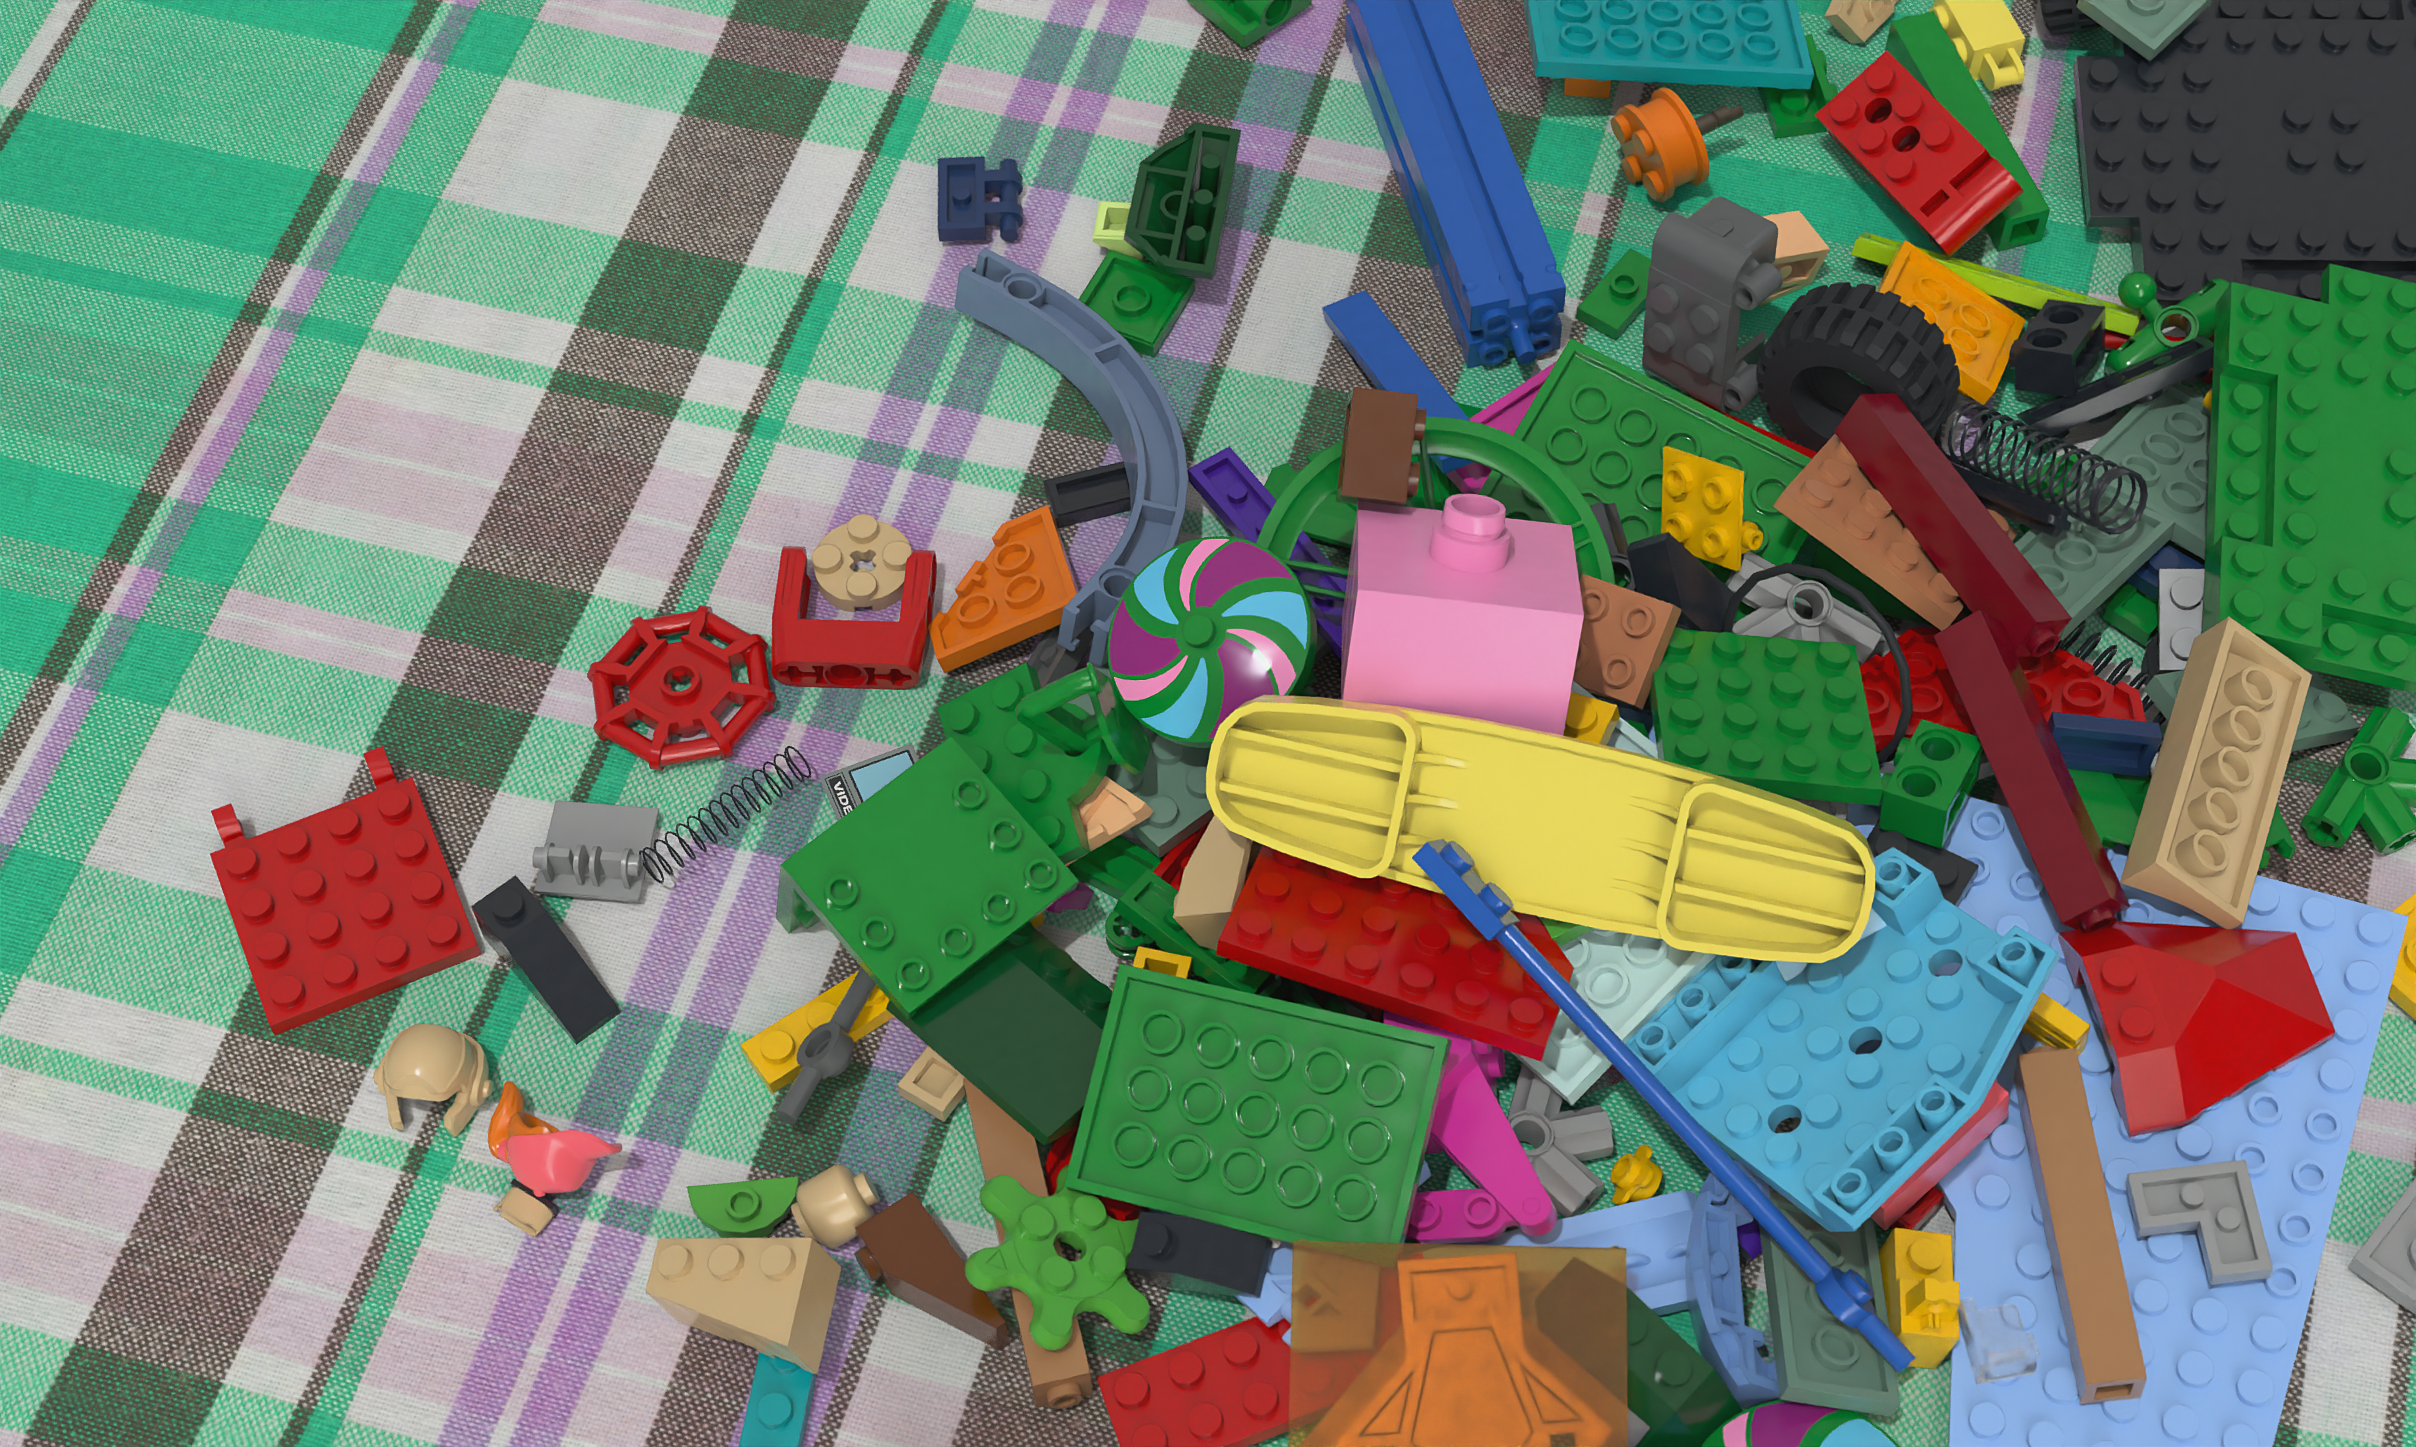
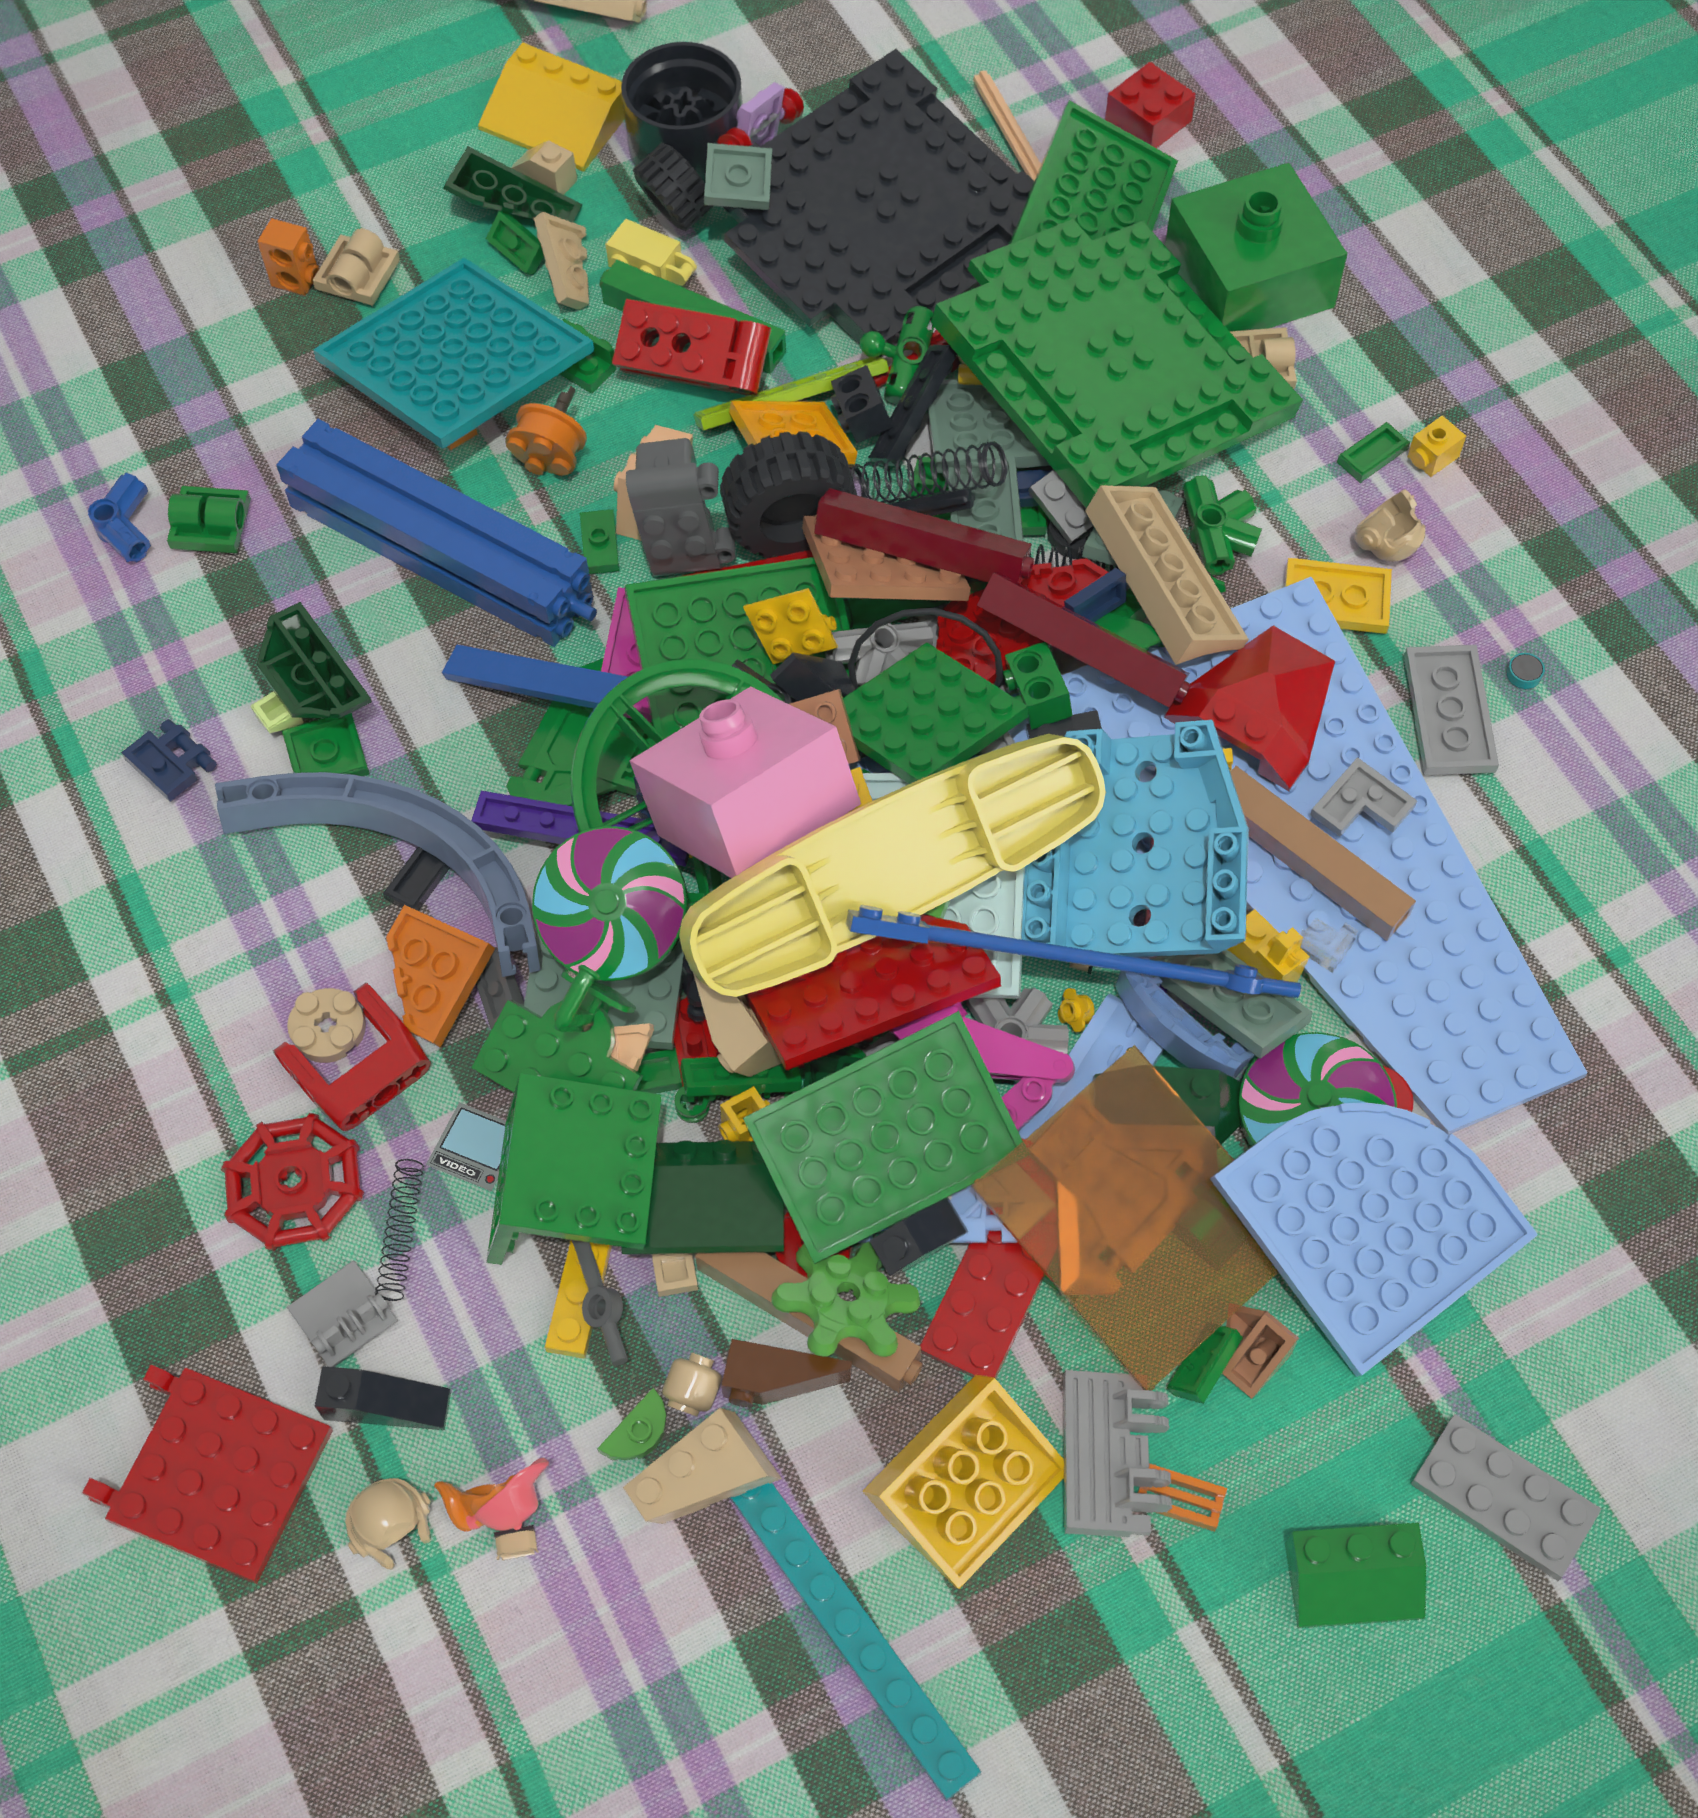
camera: 45 degrees left, 5 degrees up
(1379, 447) = (617, 722): reddish brown slope -> none

